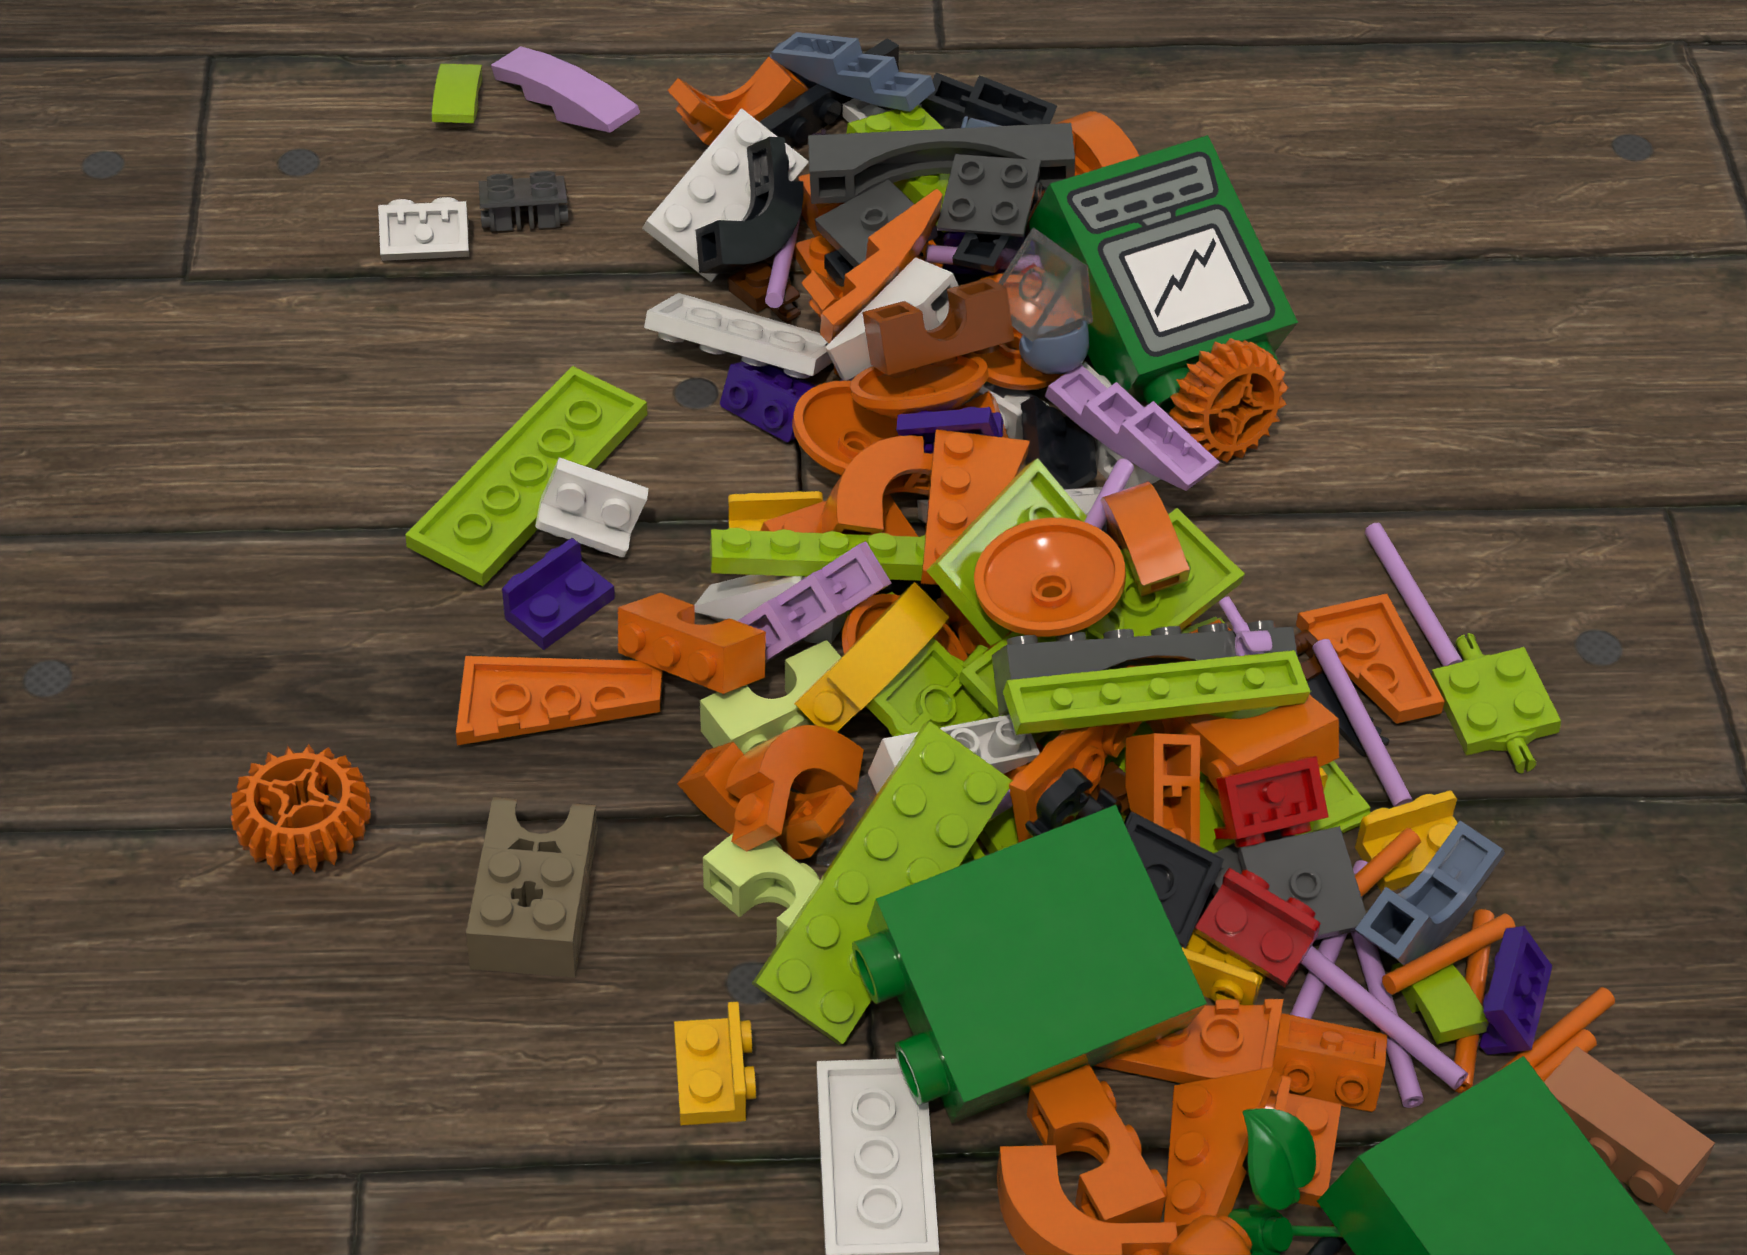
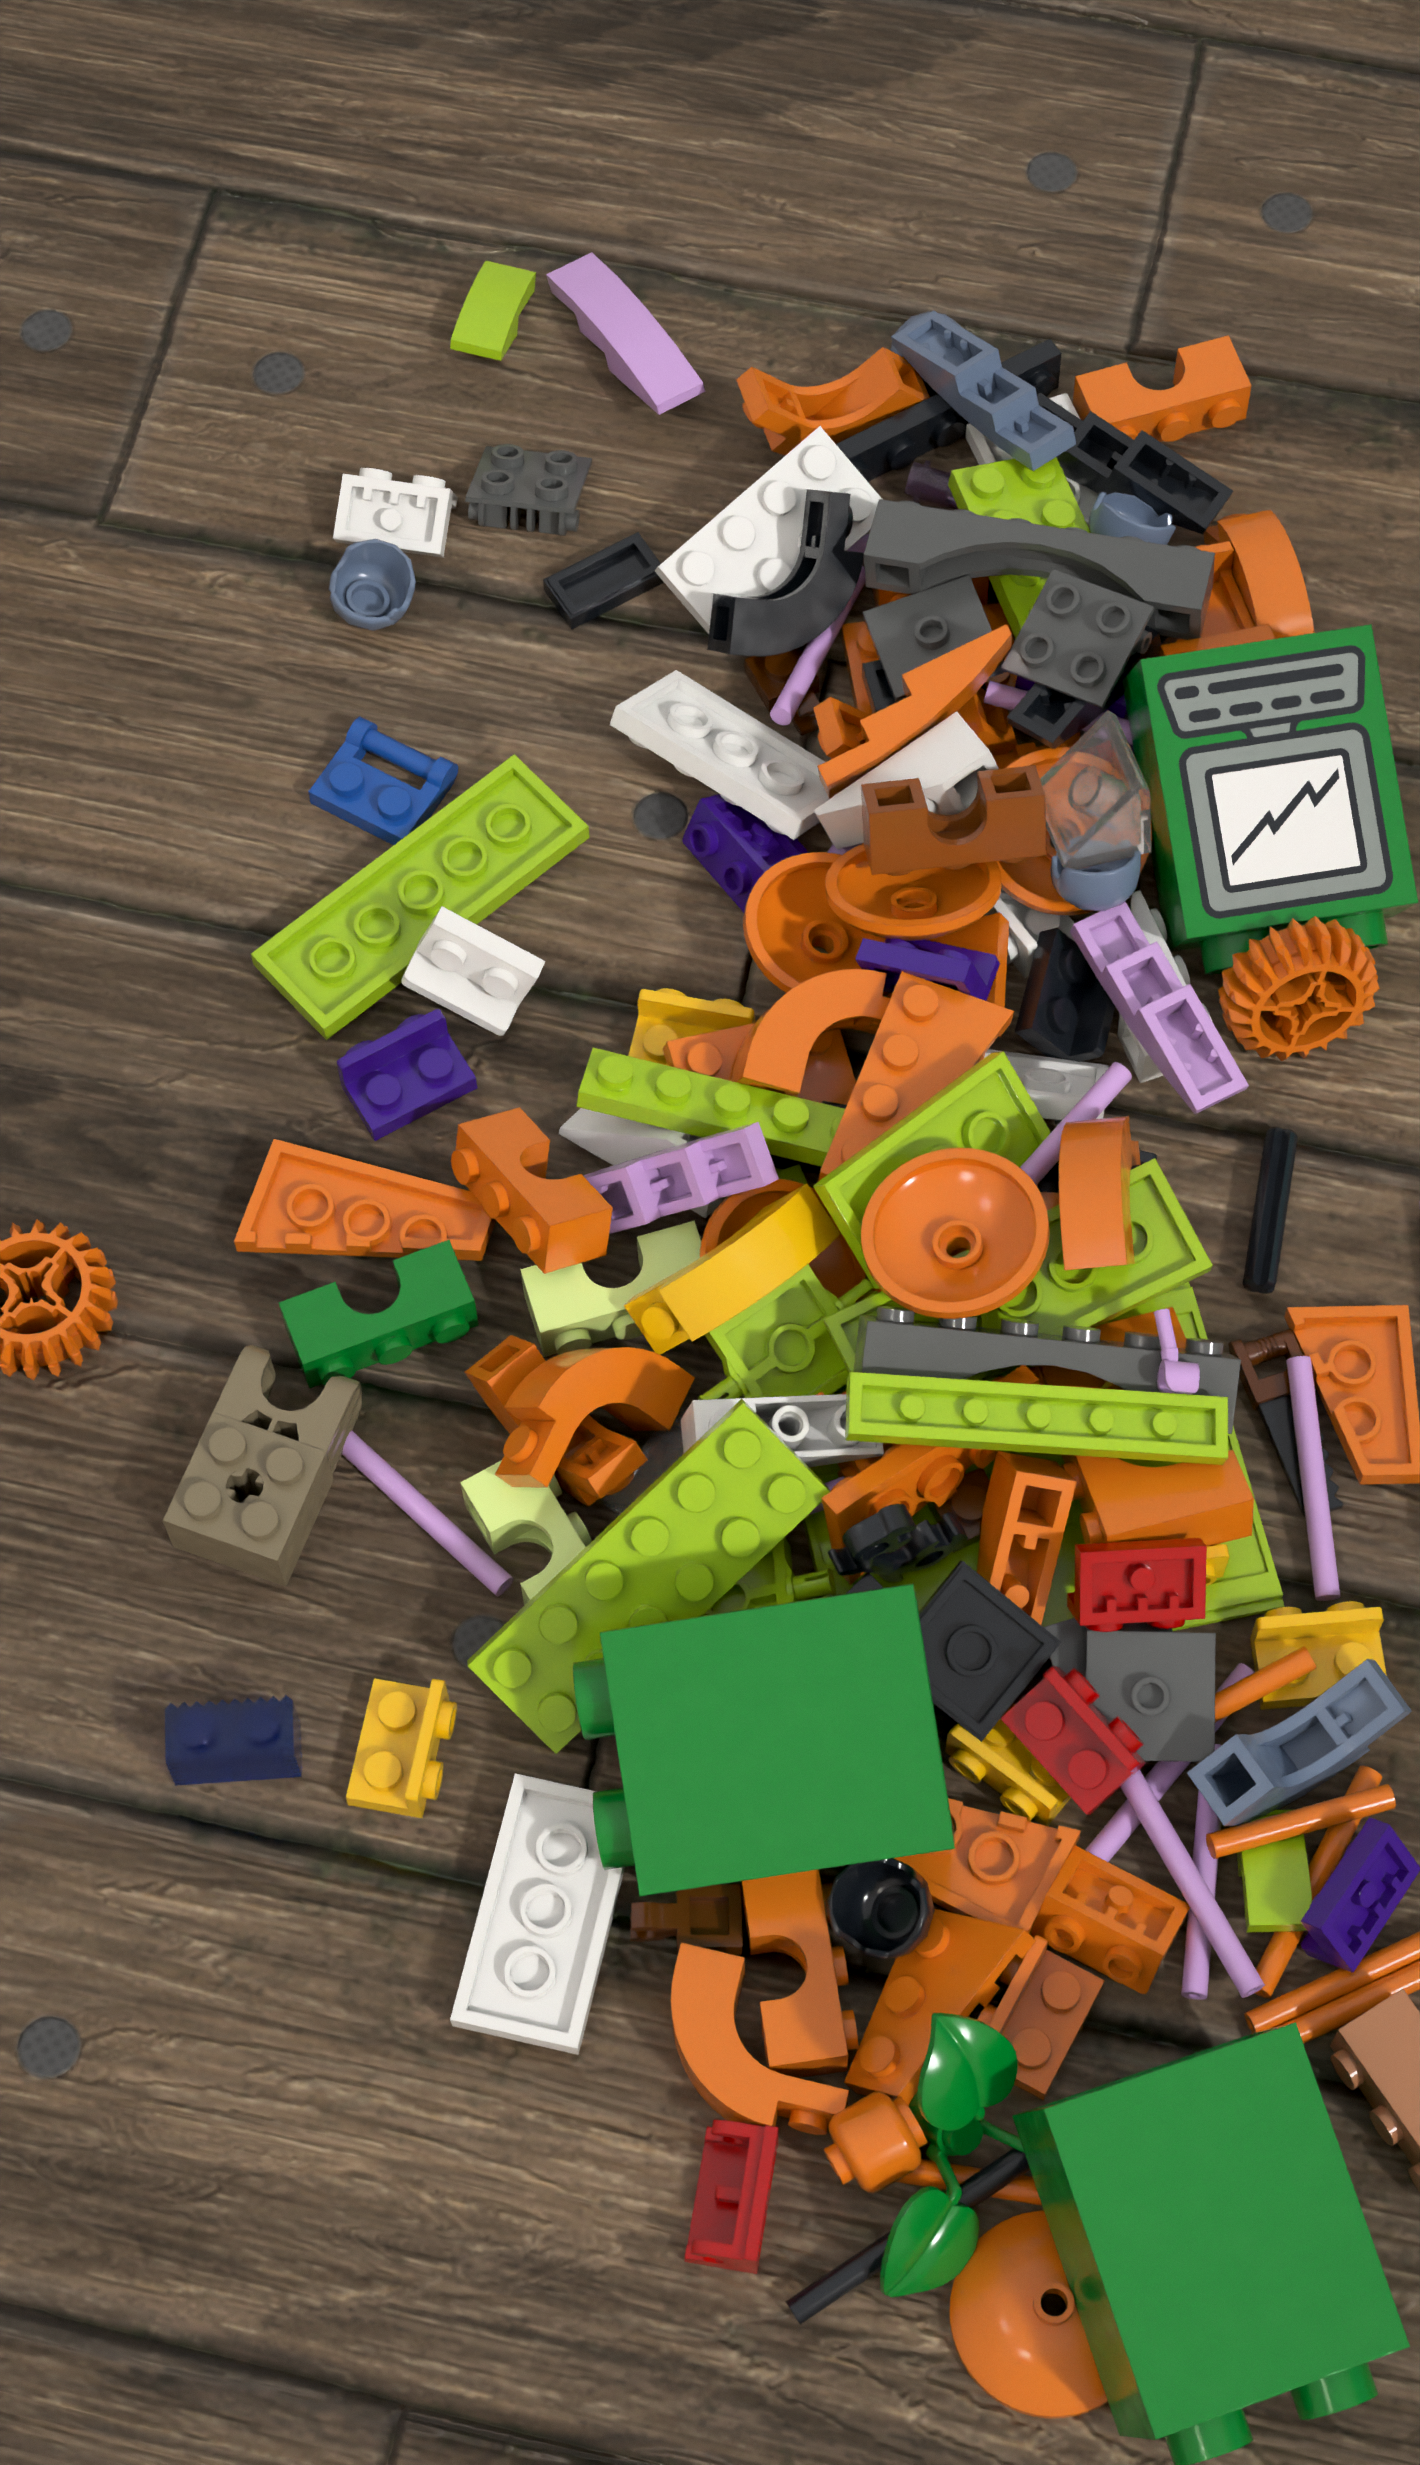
camera: 20 degrees right, 15 degrees up
(423, 275) = (372, 584): none -> sand blue hair
(470, 419) = (375, 798): none -> blue plate
(573, 1090) = (233, 1741): none -> clear blue brick
(600, 249) = (603, 580): none -> black tile
(630, 743) = (339, 1341): none -> green arch
(676, 899) = (426, 1515): none -> lavender piece
(995, 1127) = (700, 1917): none -> reddish brown plate
(1008, 56) = (1206, 394): none -> orange arch
(1152, 1080) = (881, 1907): none -> black hair
(1258, 557) = (1270, 1210): none -> black axle

